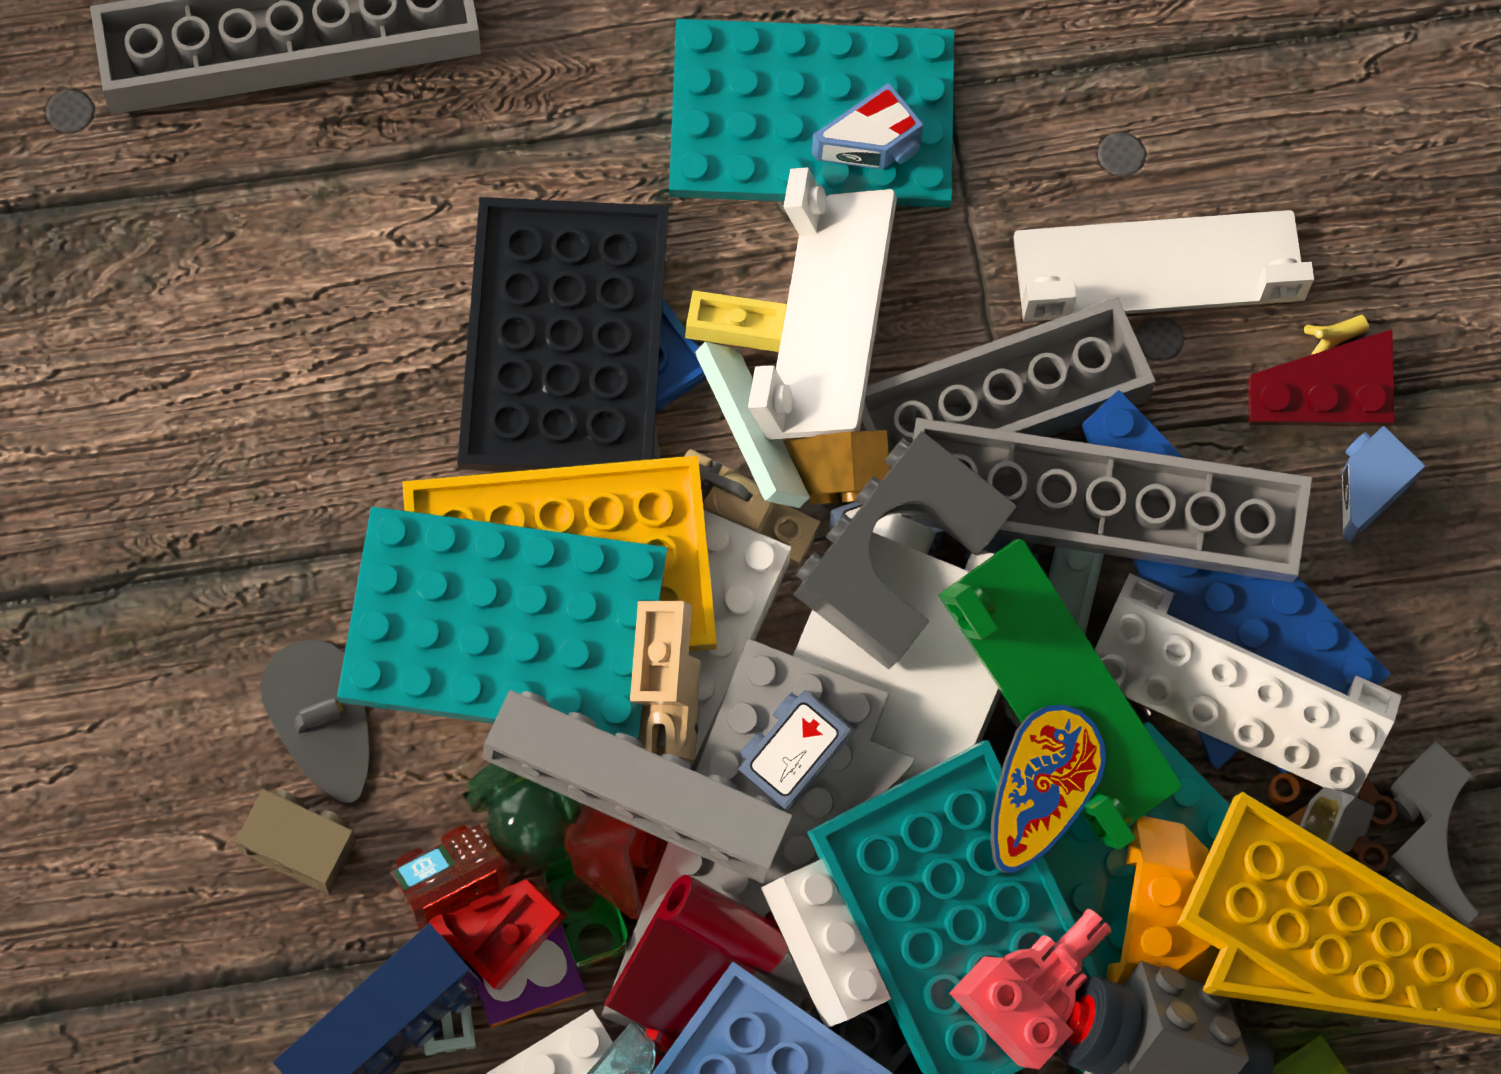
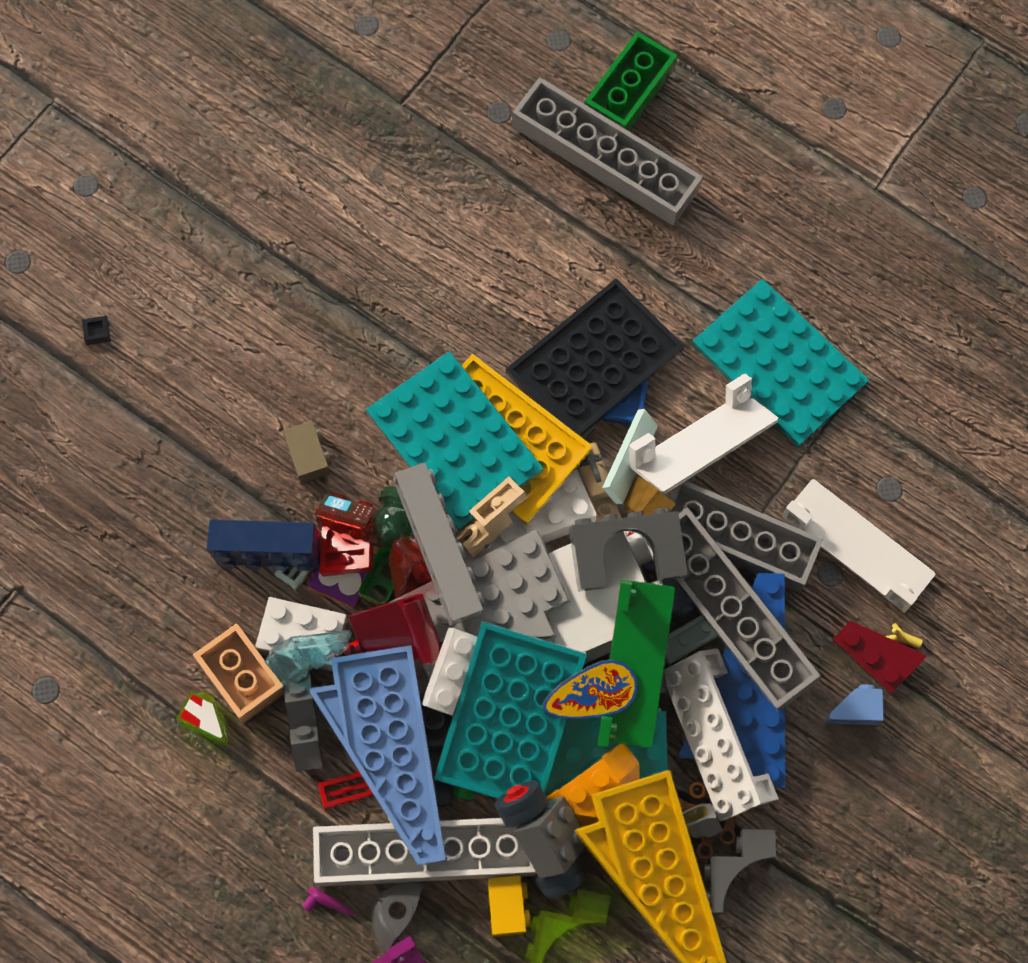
camera: 45 degrees right, 0 degrees up
(320, 733) = (355, 426): dark grey shield -> none
(735, 321) = (665, 412): light yellow plate -> none
(795, 748) = (510, 586): brick -> none
(871, 133) = (790, 388): slope -> none
(1031, 992) = (504, 765): coral brick -> none

